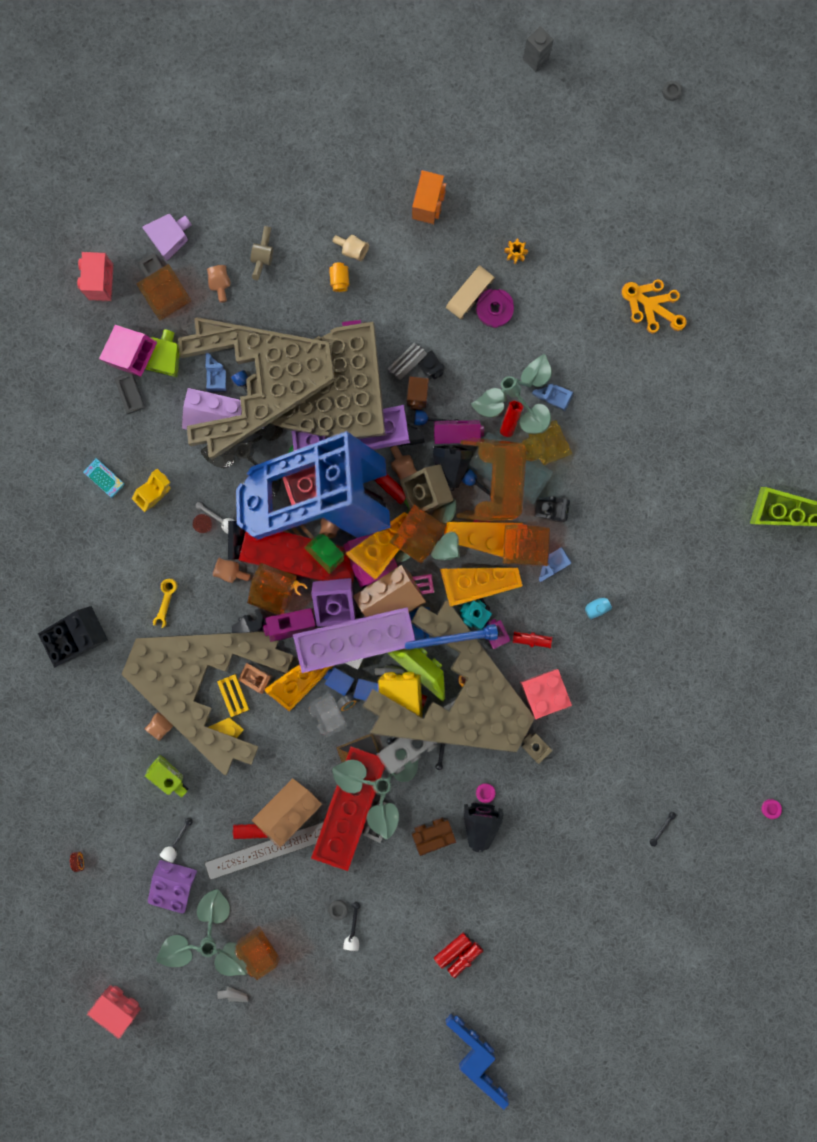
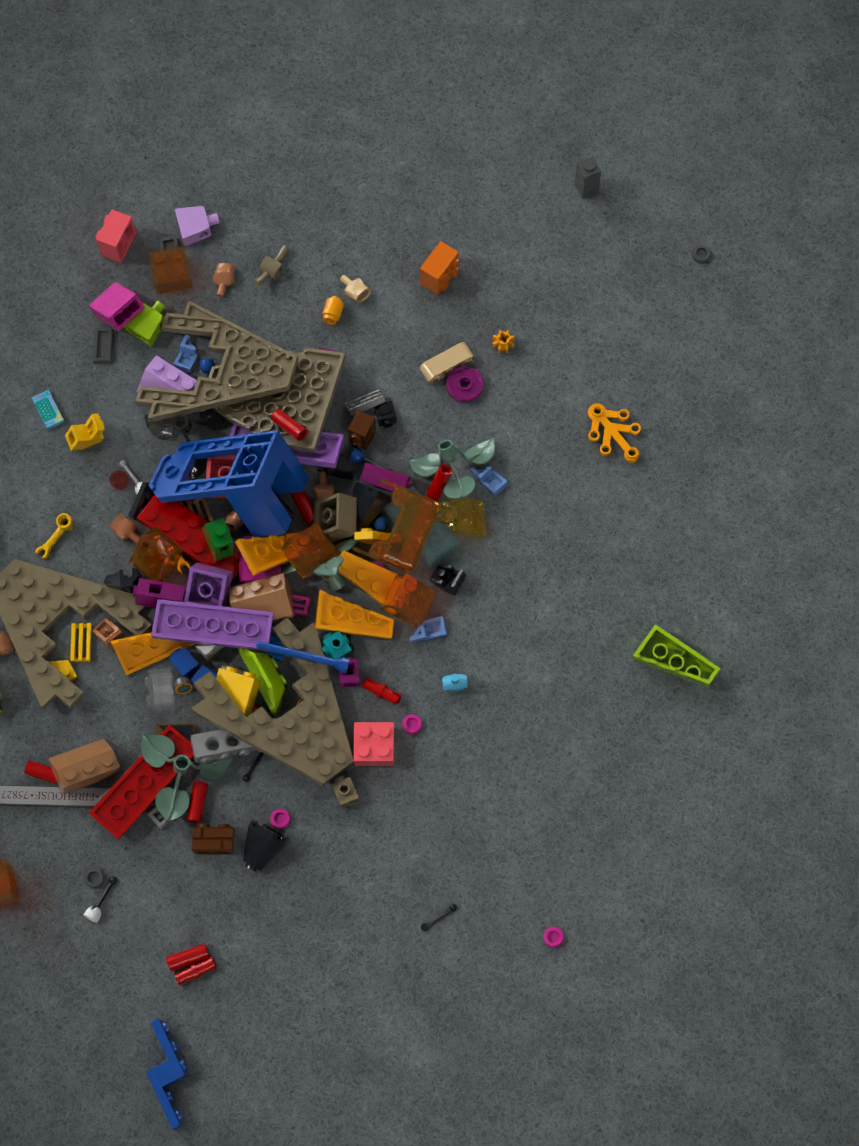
camera: 25 degrees right, 15 degrees down
(350, 417) = (289, 424): none -> red piece
(404, 806) = (197, 802): none -> red piece
(469, 496) = (369, 537): none -> yellow wing
(571, 660) = (412, 724): none -> dark pink tile

